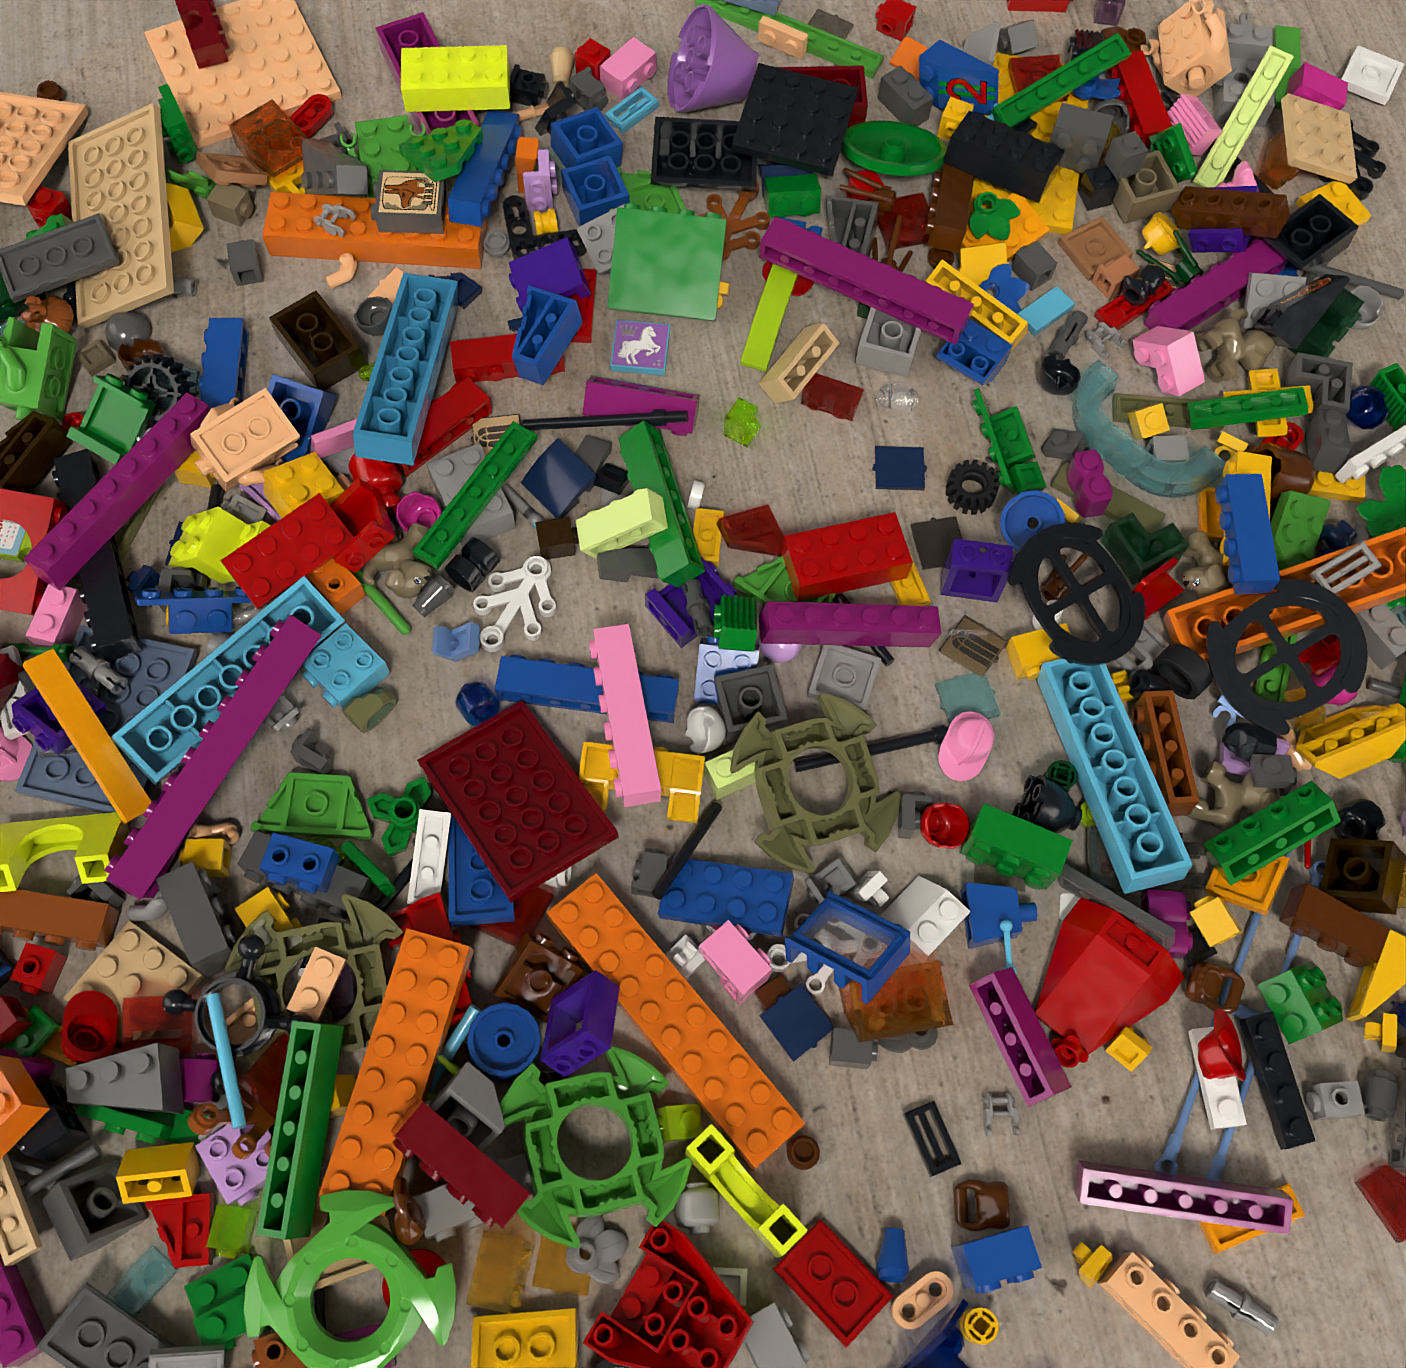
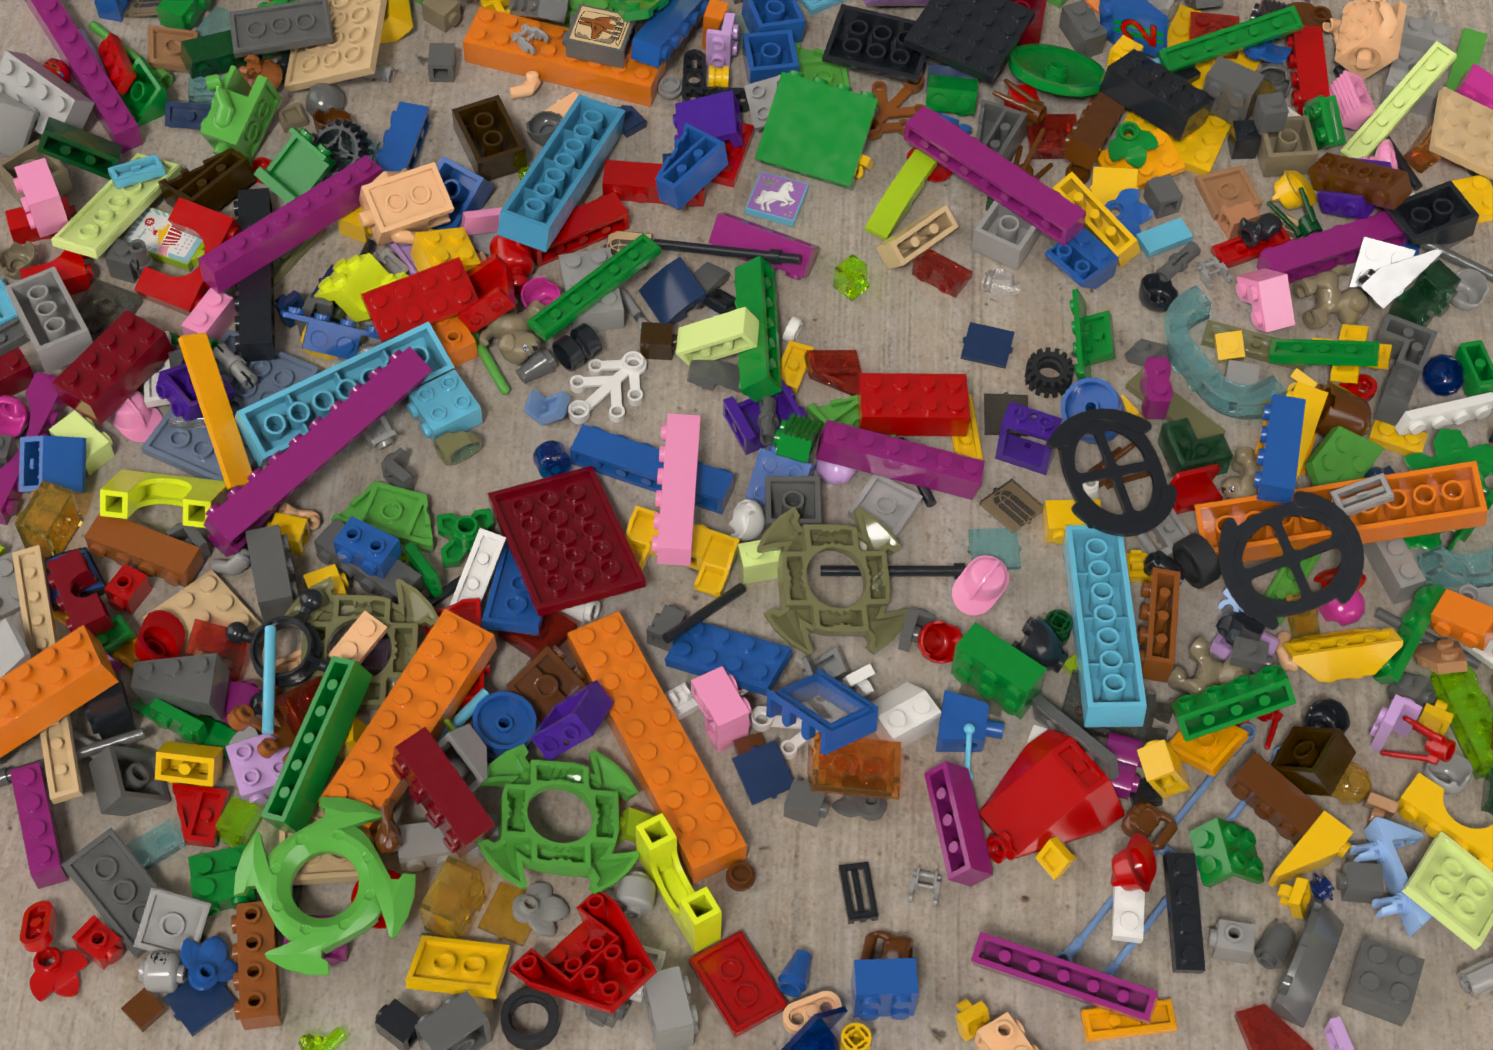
camera: 15 degrees right, 10 degrees down
(1027, 477) = (1104, 370): green plate -> none

